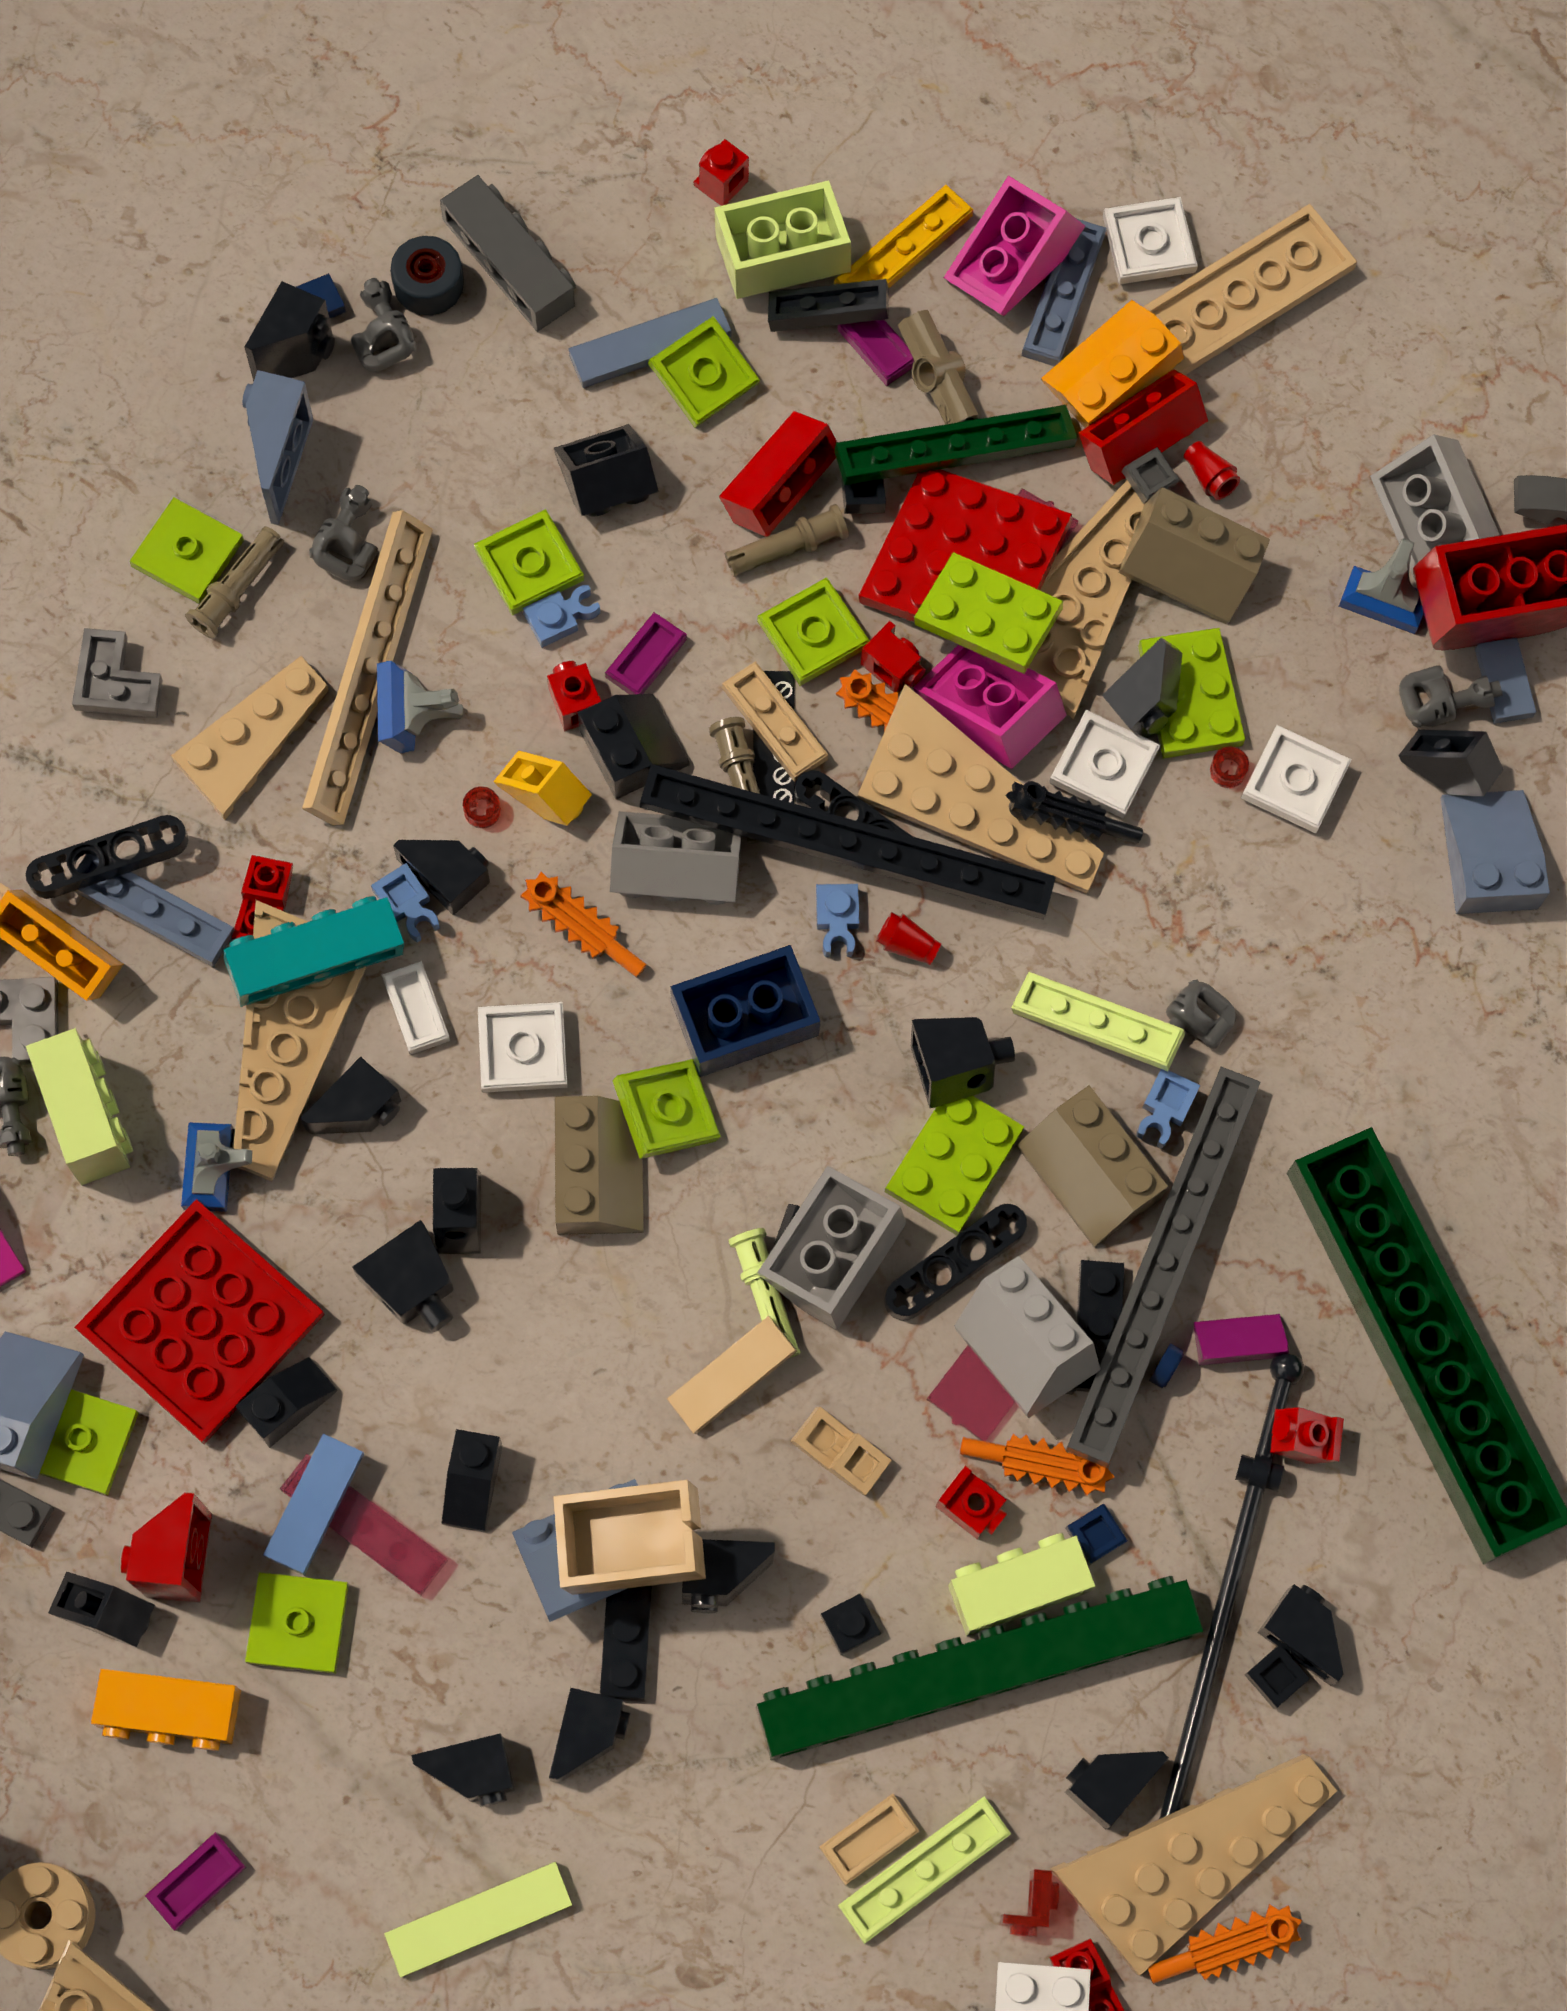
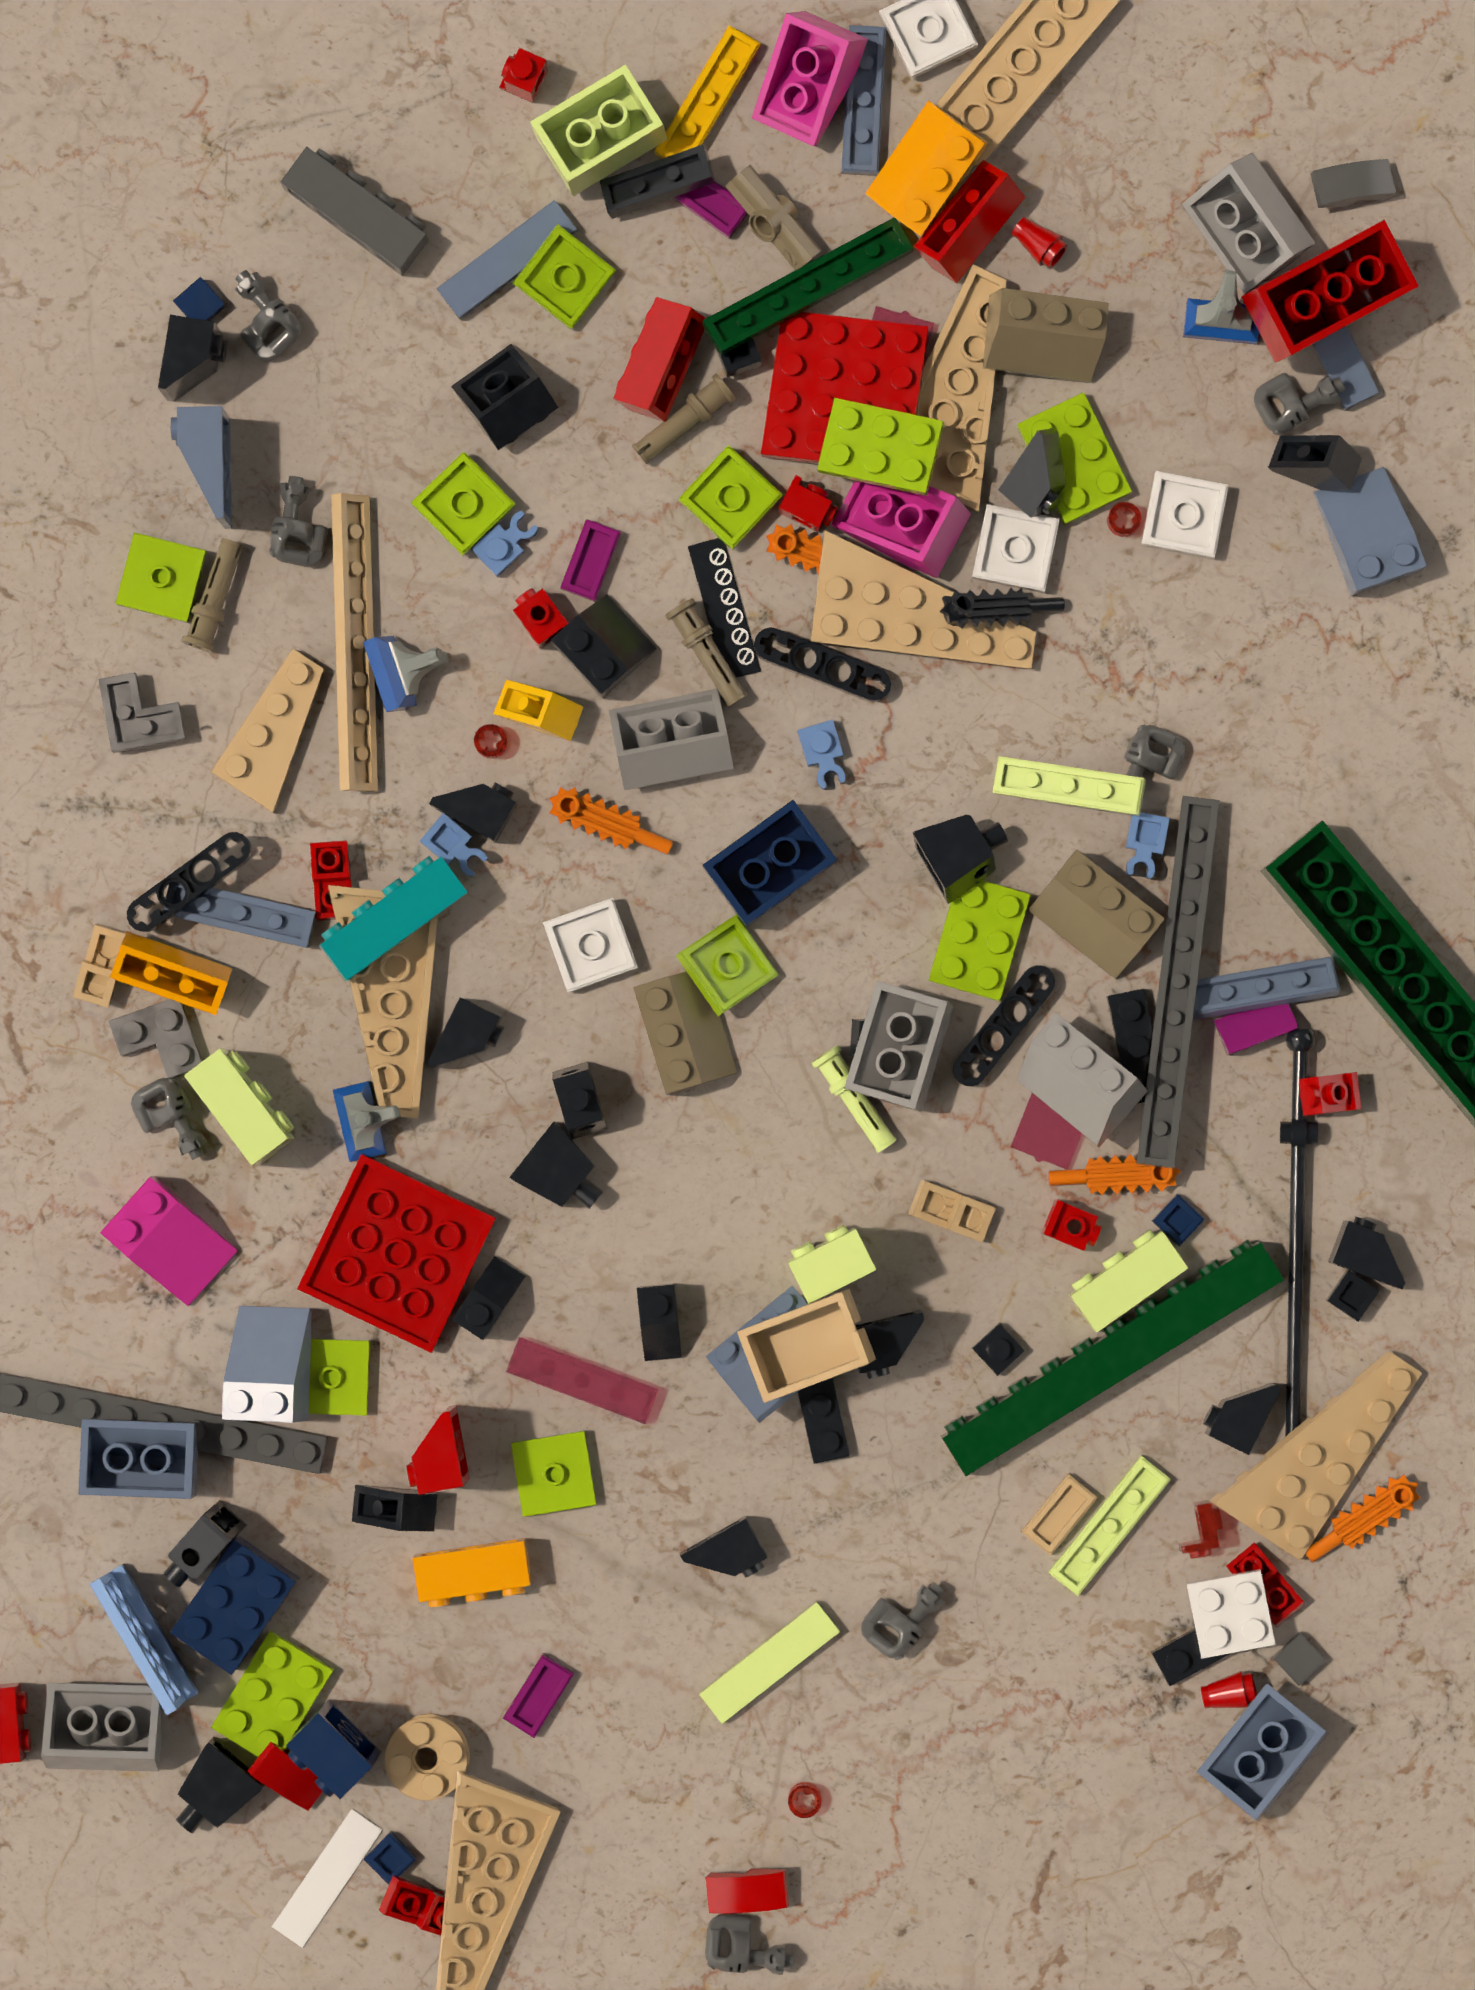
camera: 10 degrees left, 15 degrees up
(313, 1504) = (538, 1378): medium blue tile -> none
(415, 1008) = (489, 934): white tile -> none
(427, 275) = (296, 266): black wheel -> none
(587, 1731) = (812, 1495): black slope -> none
(652, 1920) = (907, 1627): none -> dark grey piece
(688, 1451) = (831, 1263): none -> yellowish green brick
(732, 1375) = (846, 1175): tan tile -> none
(774, 721) = (719, 590): tan tile -> none
(847, 841) = (814, 689): black plate -> none
(907, 939) = (887, 757): red cone -> none
(1150, 474) = (988, 268): dark grey tile -> none
(1167, 1366) = (1200, 1066): dark blue tile -> none
(1261, 1300) = (1265, 987): none -> sand blue tile

